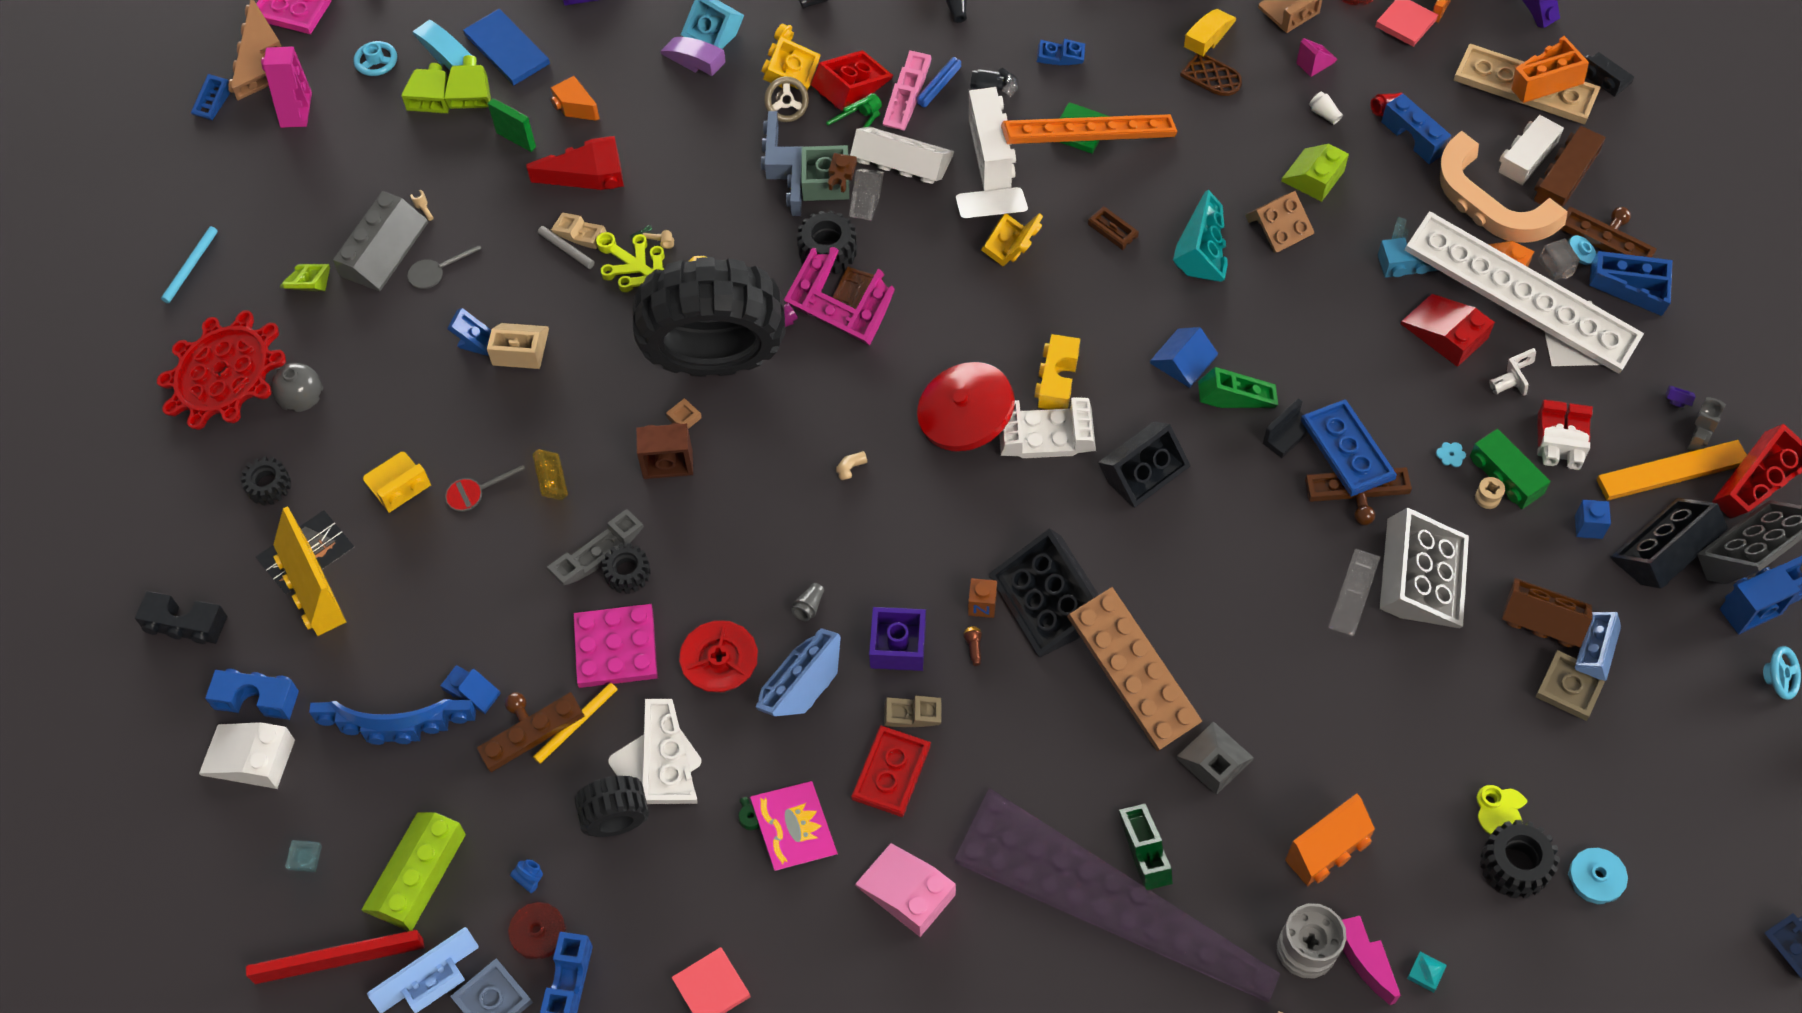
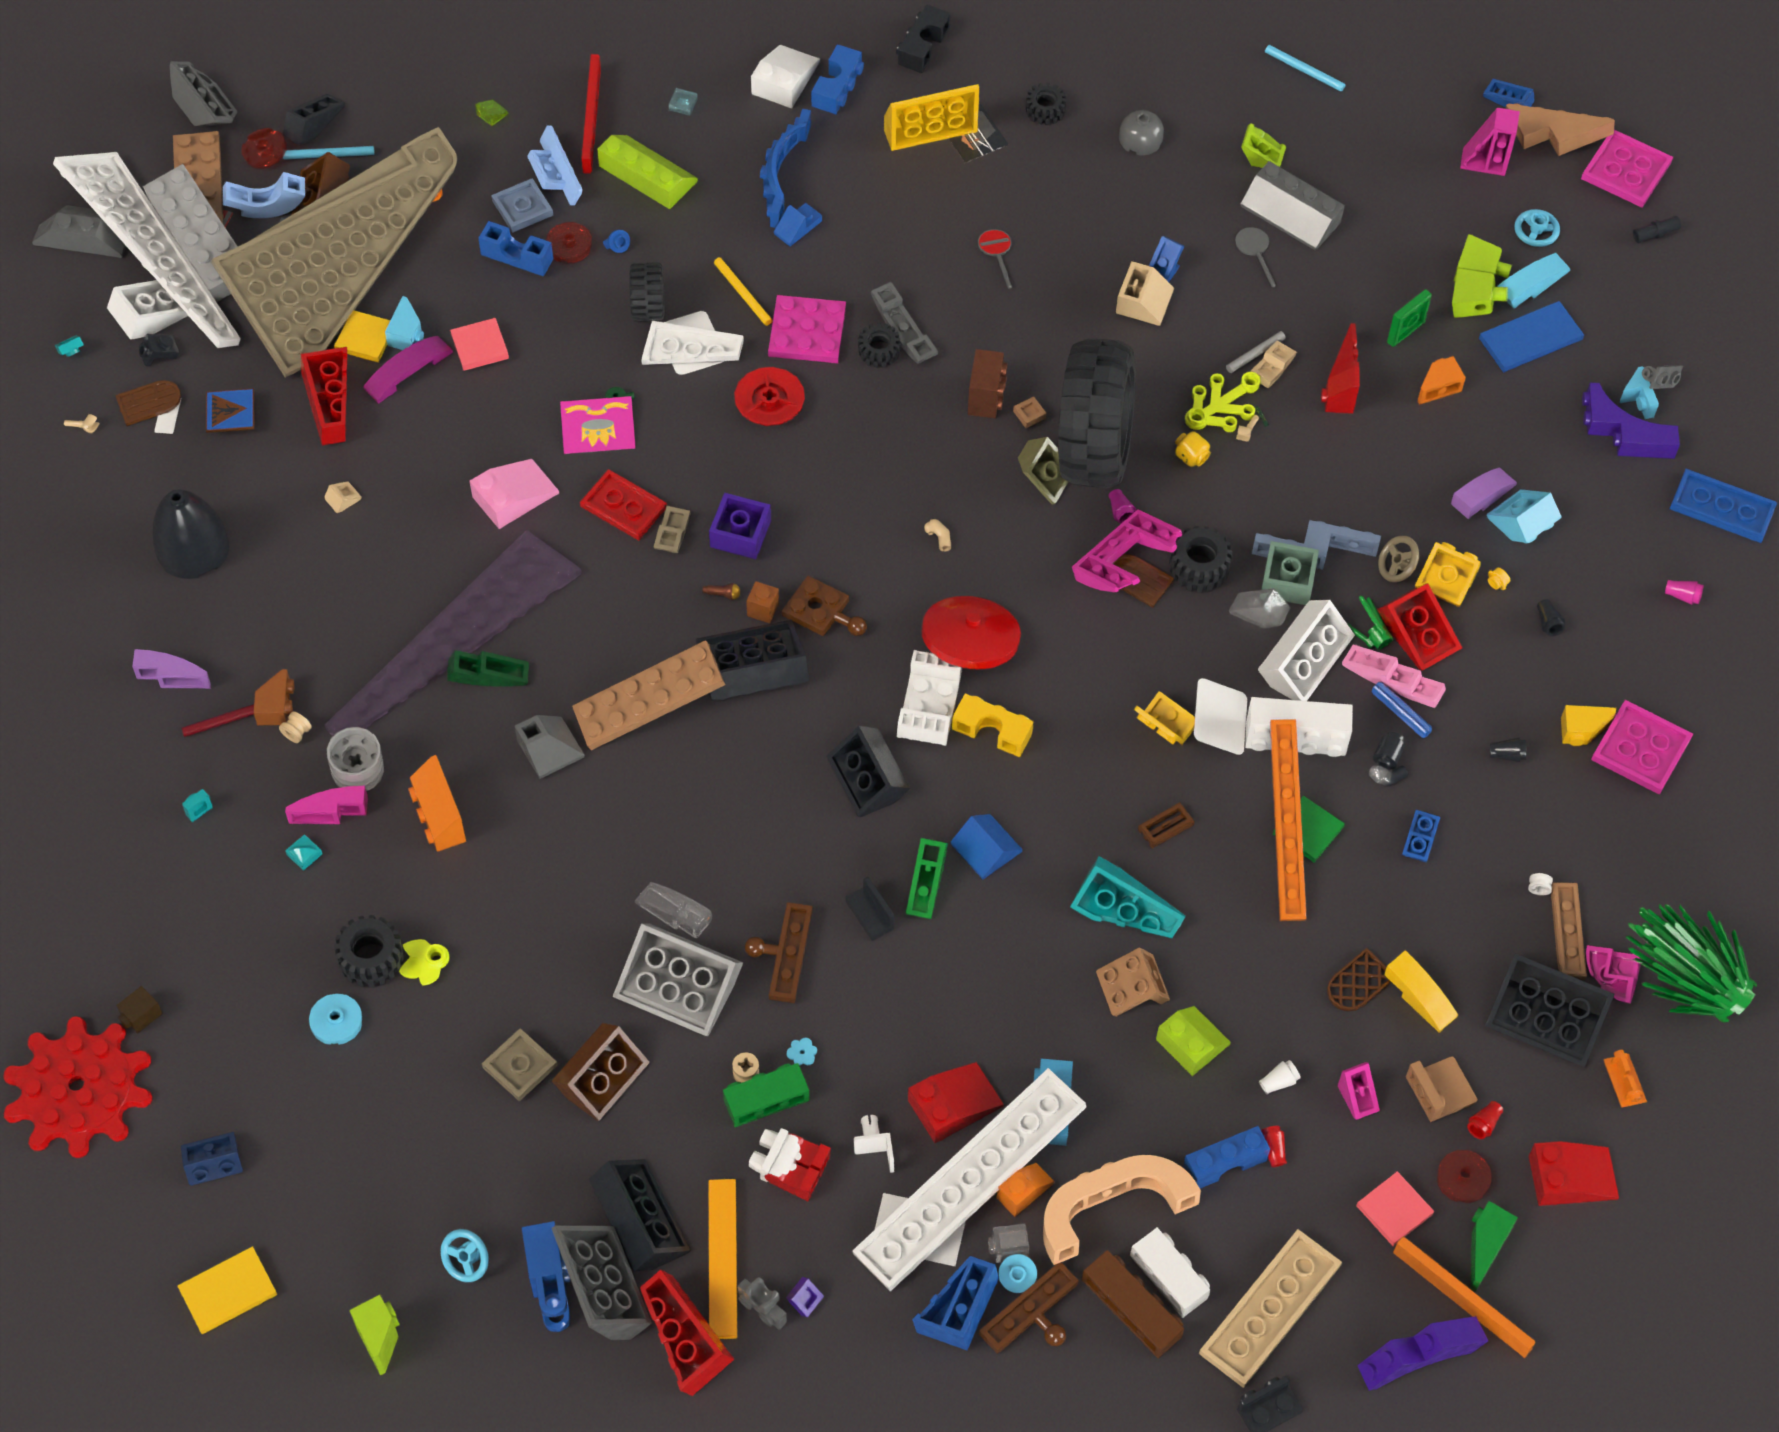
camera: 100 degrees right, 0 degrees up
(197, 377) = (1189, 73): red plate -> none
(396, 481) = (1018, 193): yellow bracket -> none
(421, 202) = (1339, 246): tan hand -> none
(530, 729) = (744, 259): reddish brown plate -> none
(550, 474) = (992, 302): clear yellow plate -> none
(749, 387) = (1041, 466): none -> olive slope
(802, 676) = (723, 445): medium blue wedge -> none
(807, 603) = (801, 471): dark grey cone -> none
(841, 169) = (1277, 576): reddish brown plate -> none
(961, 539) = (822, 618): none -> reddish brown plate
(1348, 447) = (831, 950): blue tile -> none
(1399, 229) = (1085, 1090): clear light blue plate -> none
(1550, 72) = (1264, 1317): orange wedge -> none
(1592, 519) = (684, 1148): blue brick -> none
(1599, 645) = (550, 1102): medium blue slope -> none

